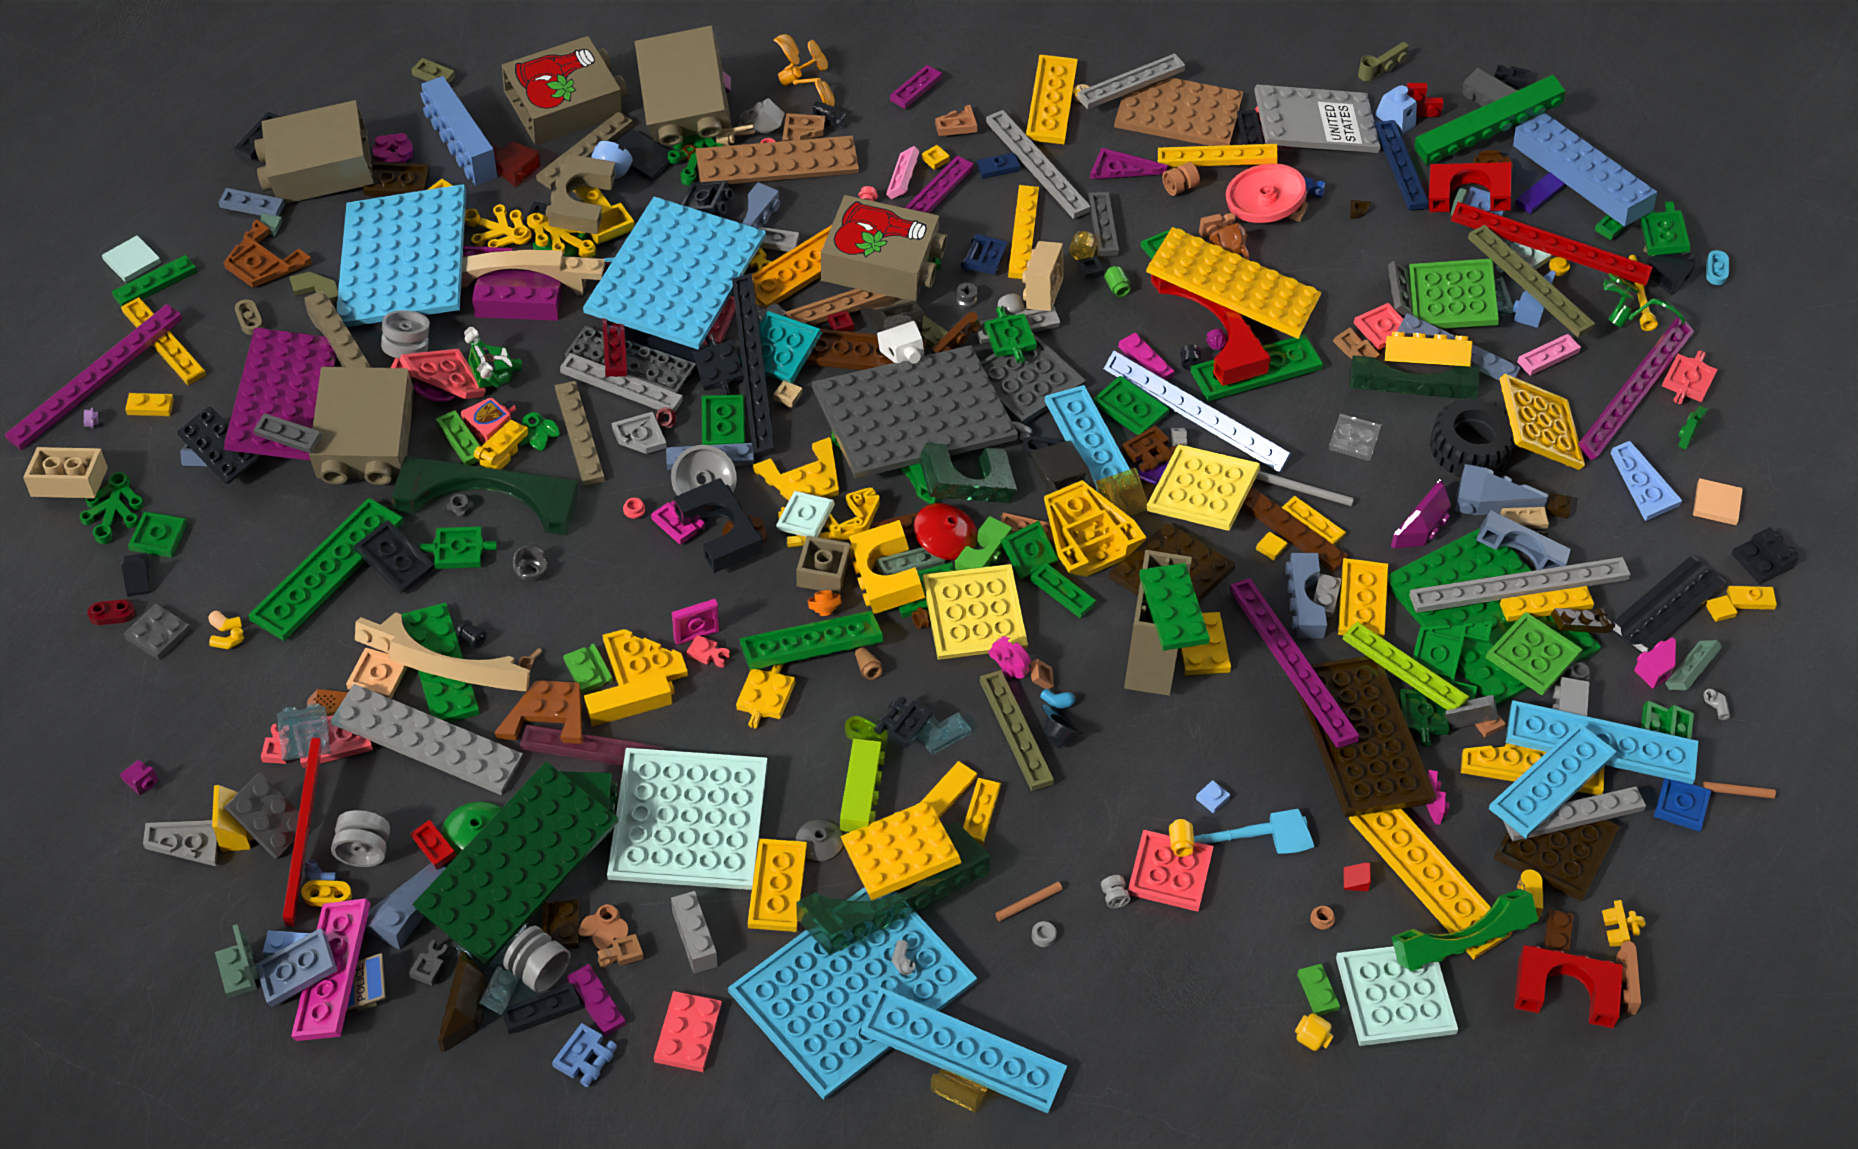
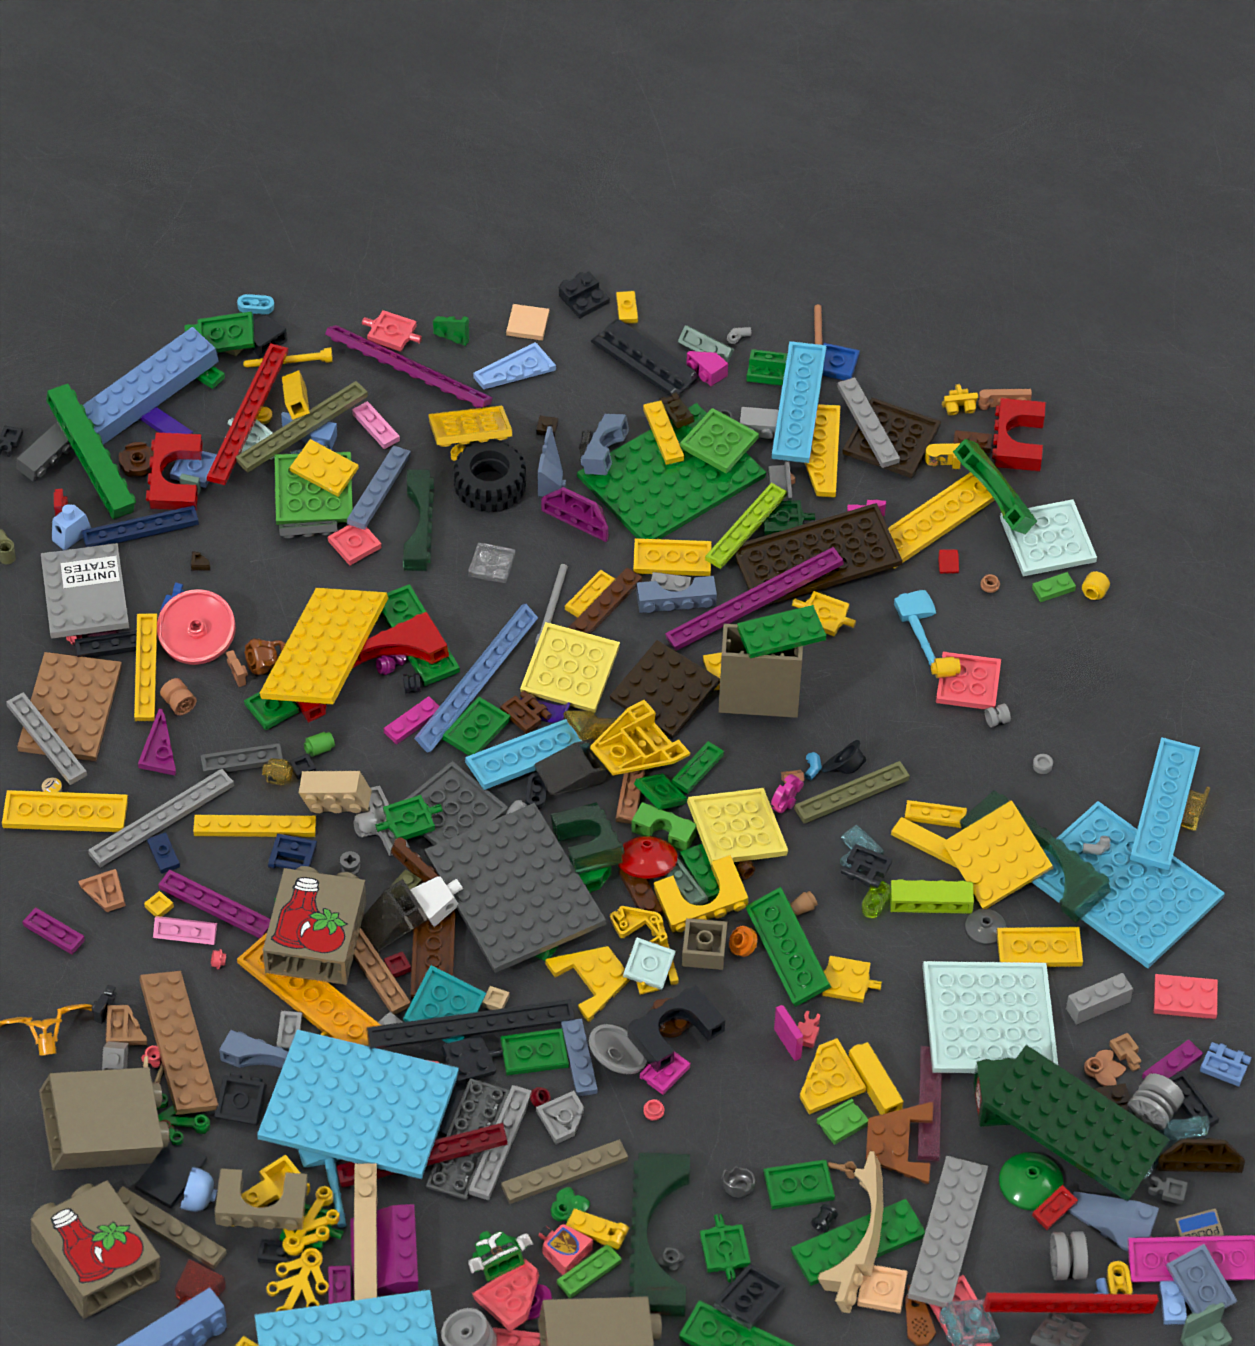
camera: 95 degrees left, 0 degrees up
(521, 621) = (798, 1184): none -> green tile
(1028, 901) = (1015, 775): nougat bar -> none
(1178, 436) = (509, 689): light grey piece -> none
(1213, 796) = (890, 657): light blue plate -> none
(1271, 546) = (622, 622): yellow tile -> none
(1277, 735) = (829, 610): none -> yellow plate
(1352, 345) = (381, 564): medium nougat slope -> none
(1428, 350) = (392, 503): yellow brick -> none
(1441, 647) = (721, 501): green wing -> none
(1474, 296) = (324, 467): none -> yellow plate
(1519, 584) = (649, 448): light grey plate -> none
(1527, 516) = (567, 448): tan plate -> none
(1552, 780) = (850, 427): medium azure plate -> none
(1574, 278) = (295, 395): none -> yellow brick
(1622, 311) = (322, 363): green plant -> none
(1721, 608) = (642, 326): yellow tile -> none

